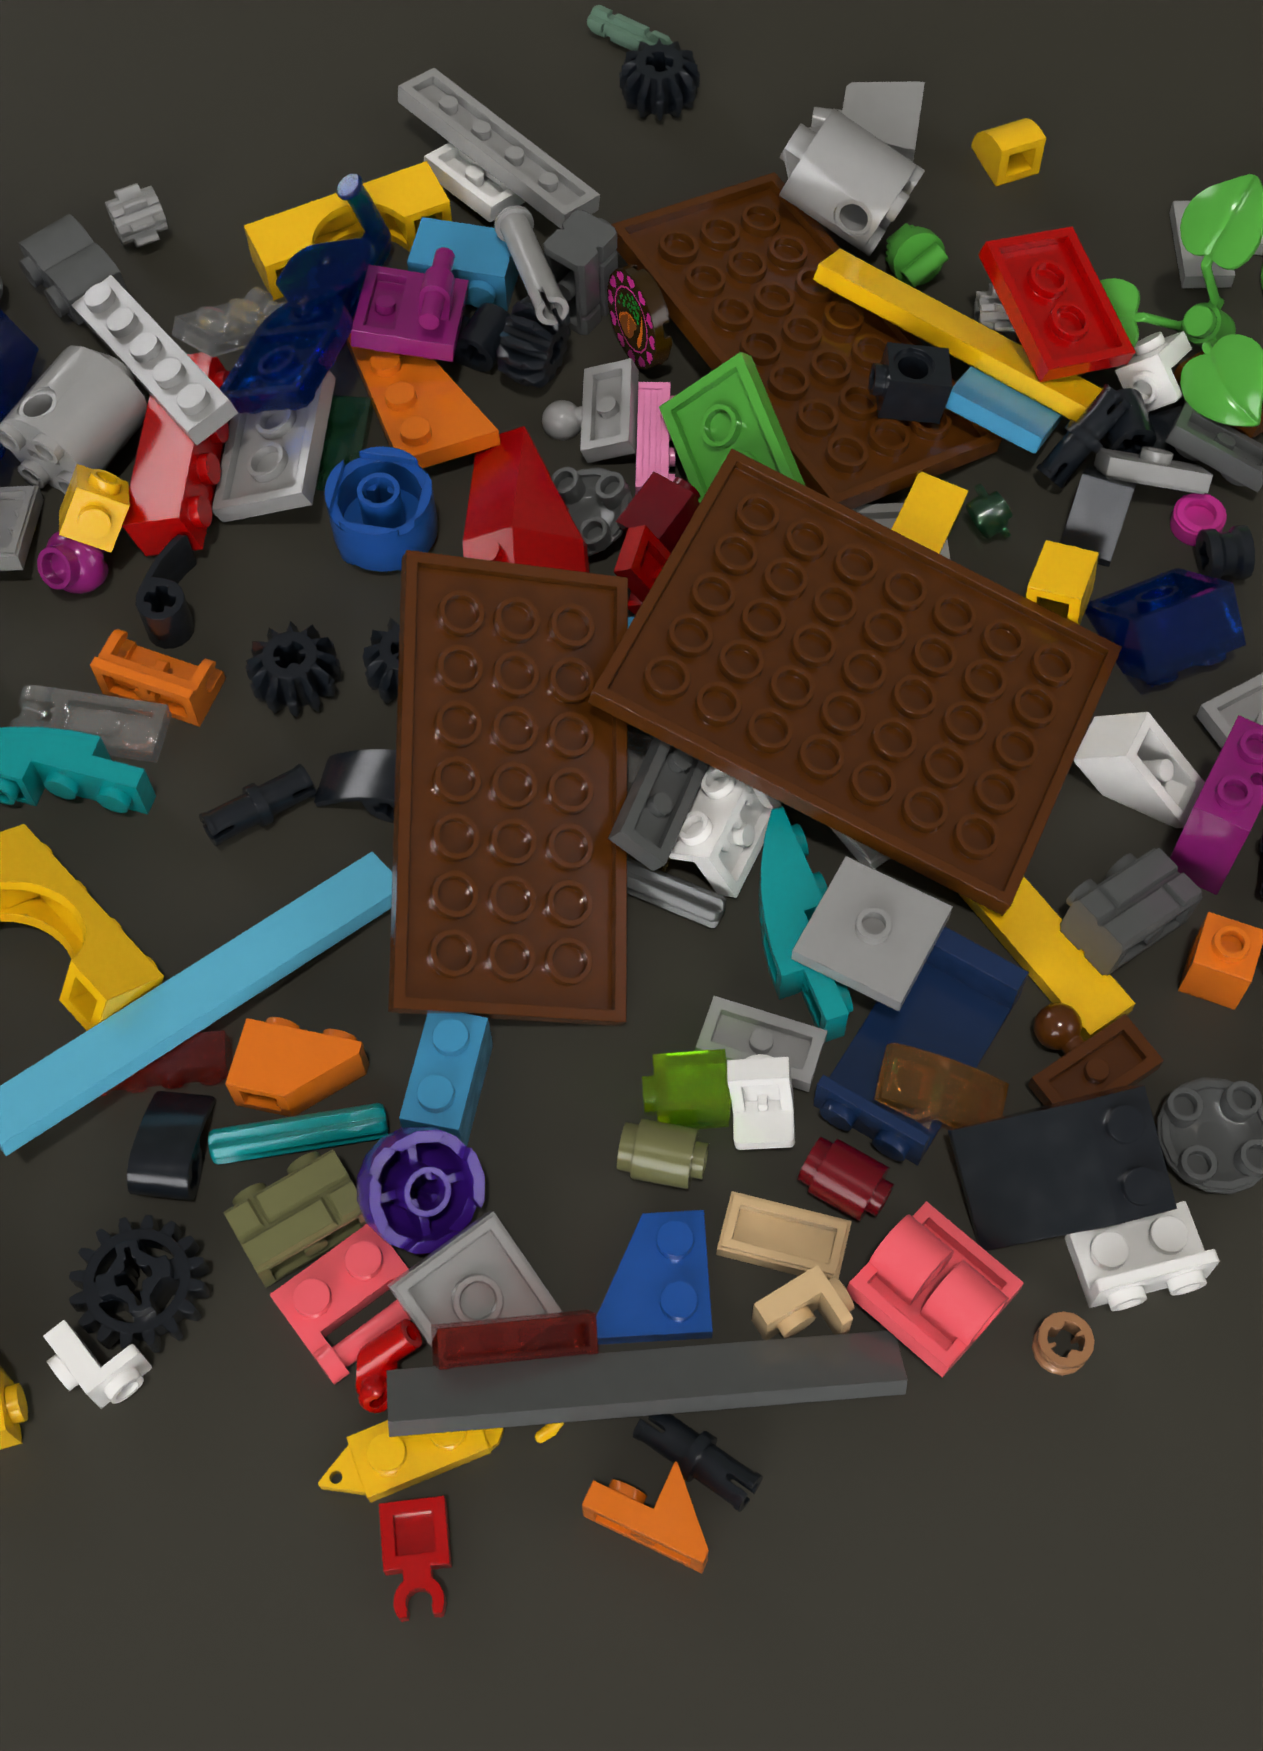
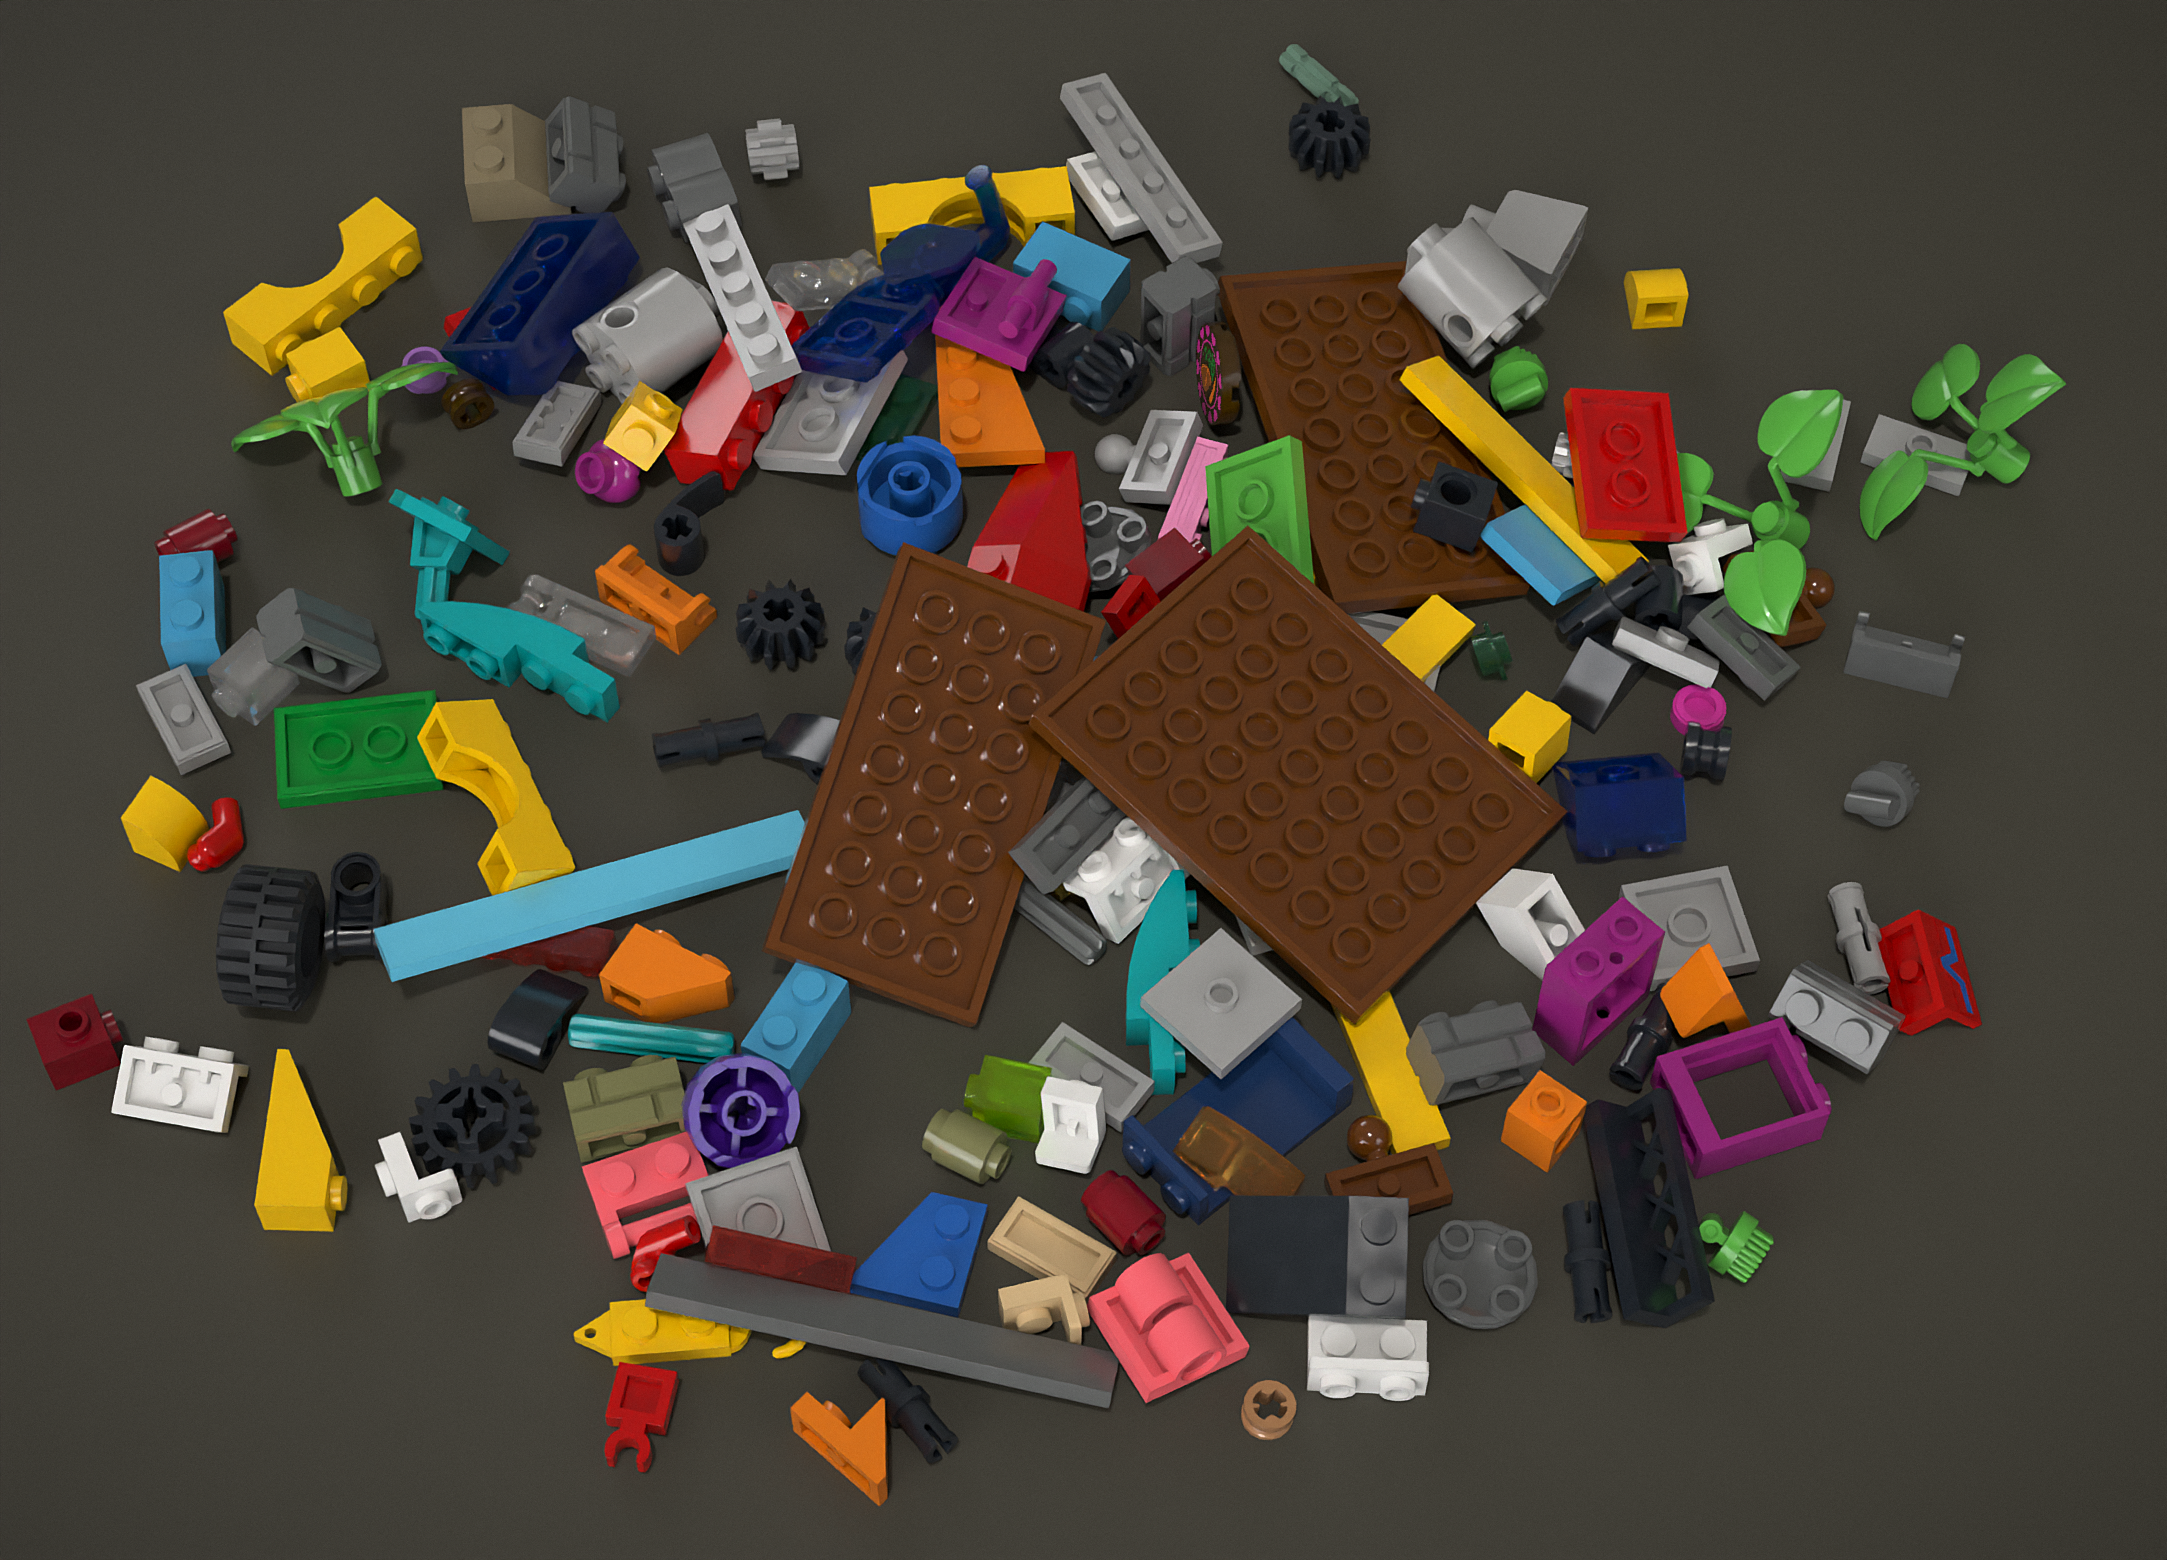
camera: 15 degrees right, 5 degrees down
(515, 228) = (1125, 259): light grey pin -> none

